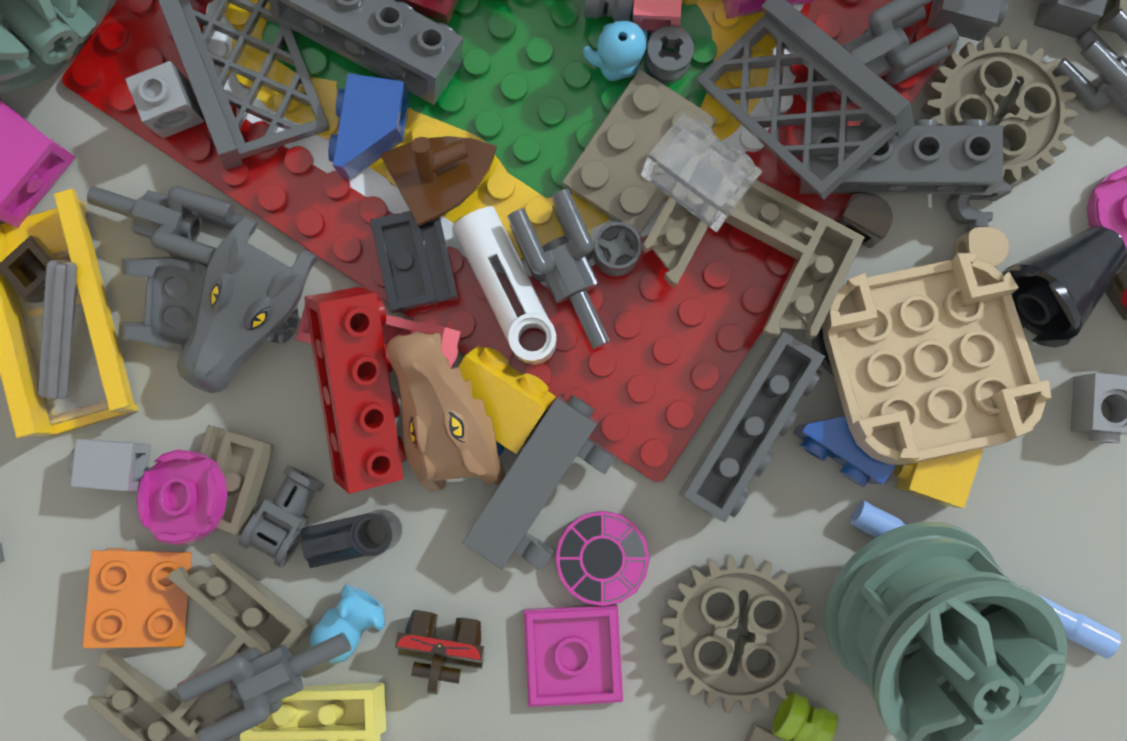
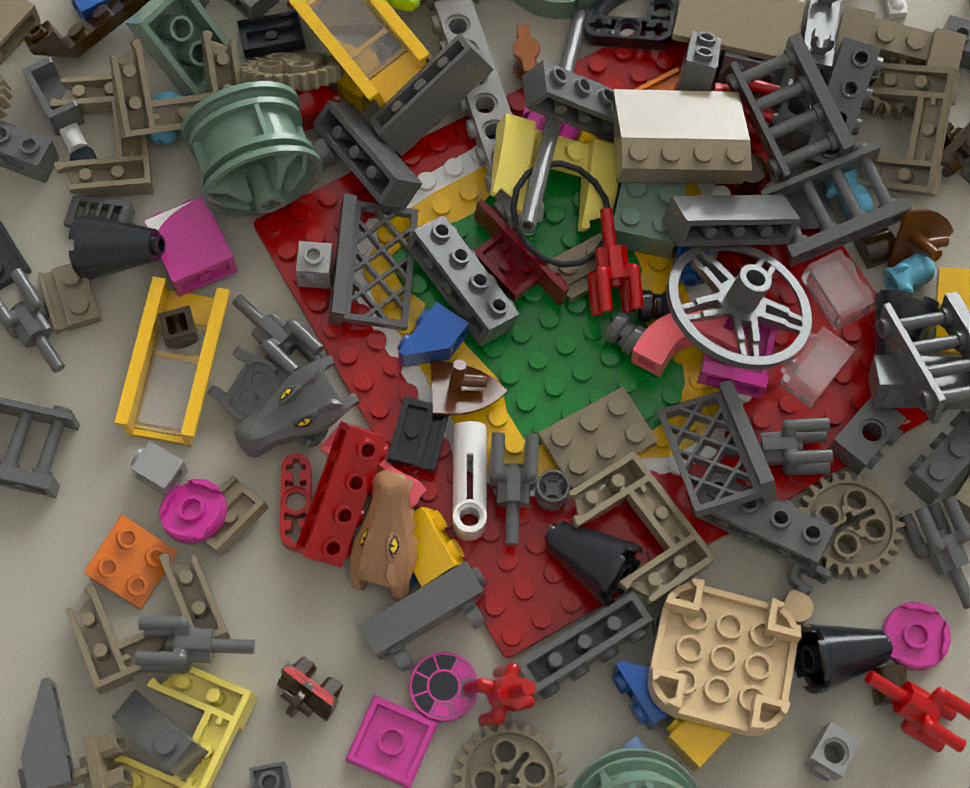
camera: 20 degrees right, 15 degrees down
(57, 329) = (174, 369): flat silver axle -> none
(278, 393) = (305, 478): none -> red beam
(280, 520) = (249, 556): dark grey connector -> none
(348, 538) = (283, 590): black piece -> none
(353, 615) = (266, 642): medium azure animal -> none
(619, 50) = (615, 368): medium azure animal -> none
(669, 65) = (645, 394): dark grey wheel -> none
(686, 542) = (503, 693): none -> red plant
(700, 171) = (627, 464): clear brick -> none
(711, 312) = (593, 558): none -> black cone
(867, 216) = (727, 550): dark brown brick -> none

